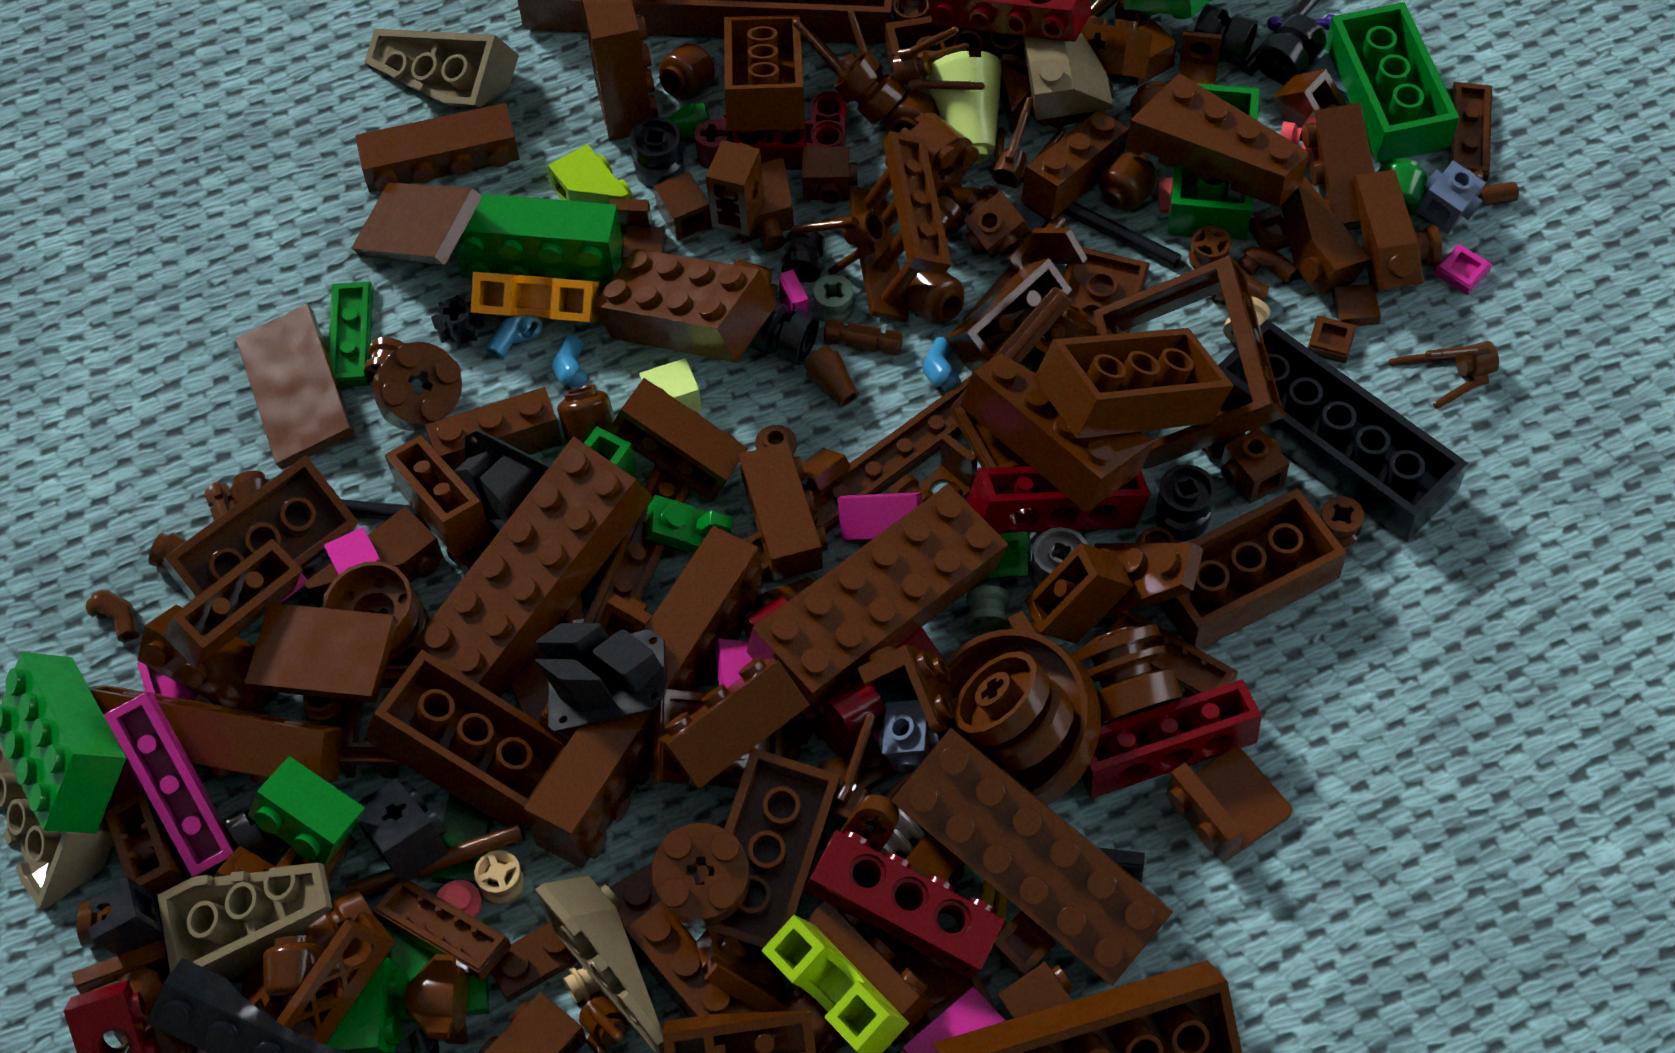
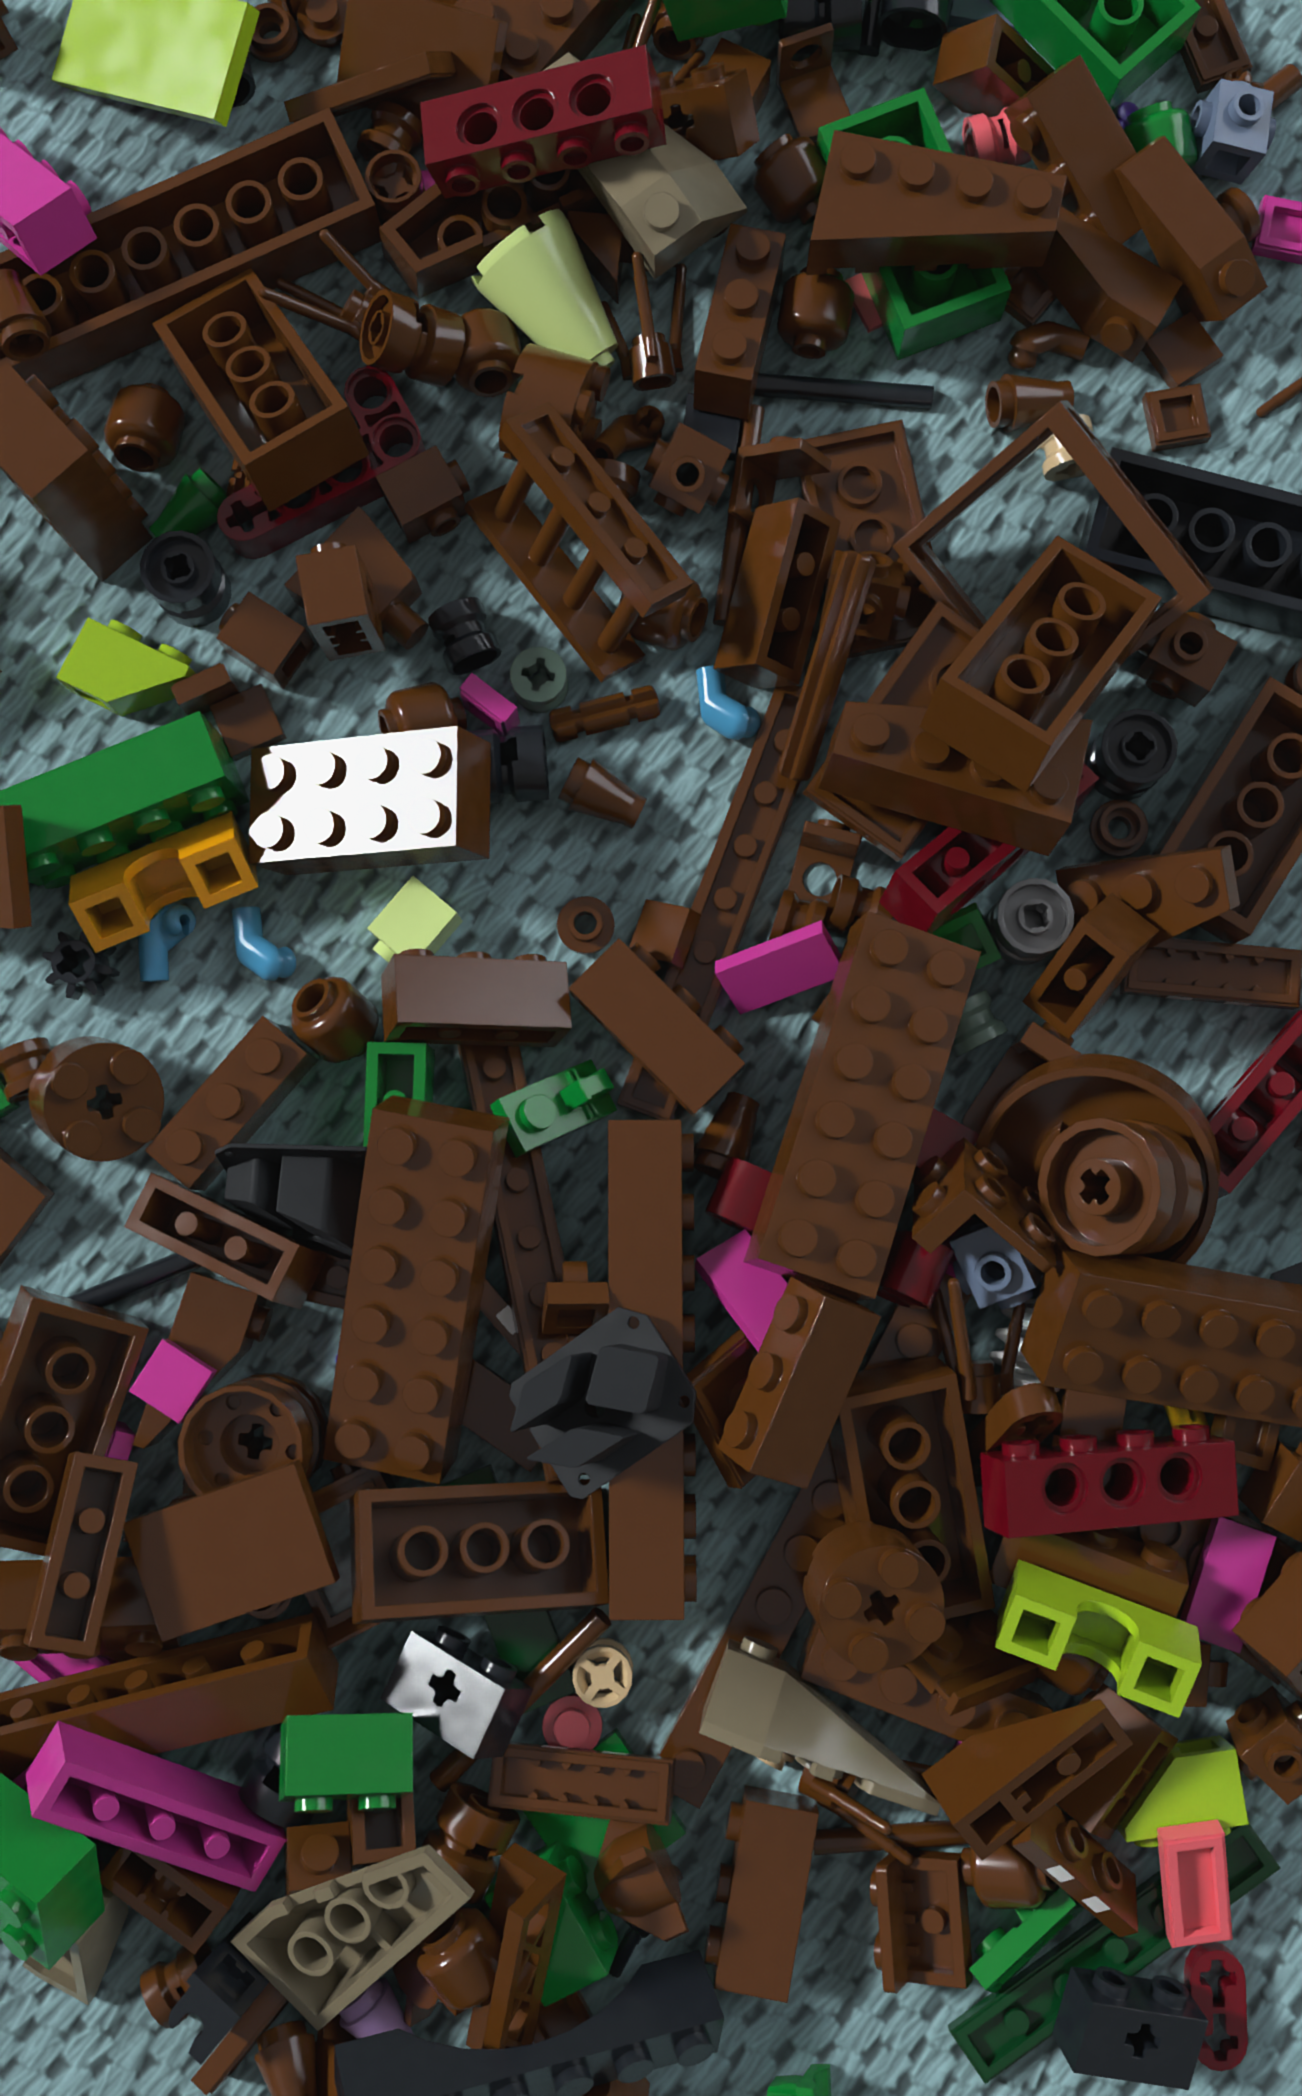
camera: 25 degrees left, 25 degrees up
(858, 230) = (532, 572): reddish brown plant -> none
(913, 64) = (459, 279): reddish brown plant -> none
(1126, 672) = (1200, 1037): reddish brown wheel -> none
(1212, 239) = (973, 349): reddish brown wheel -> none

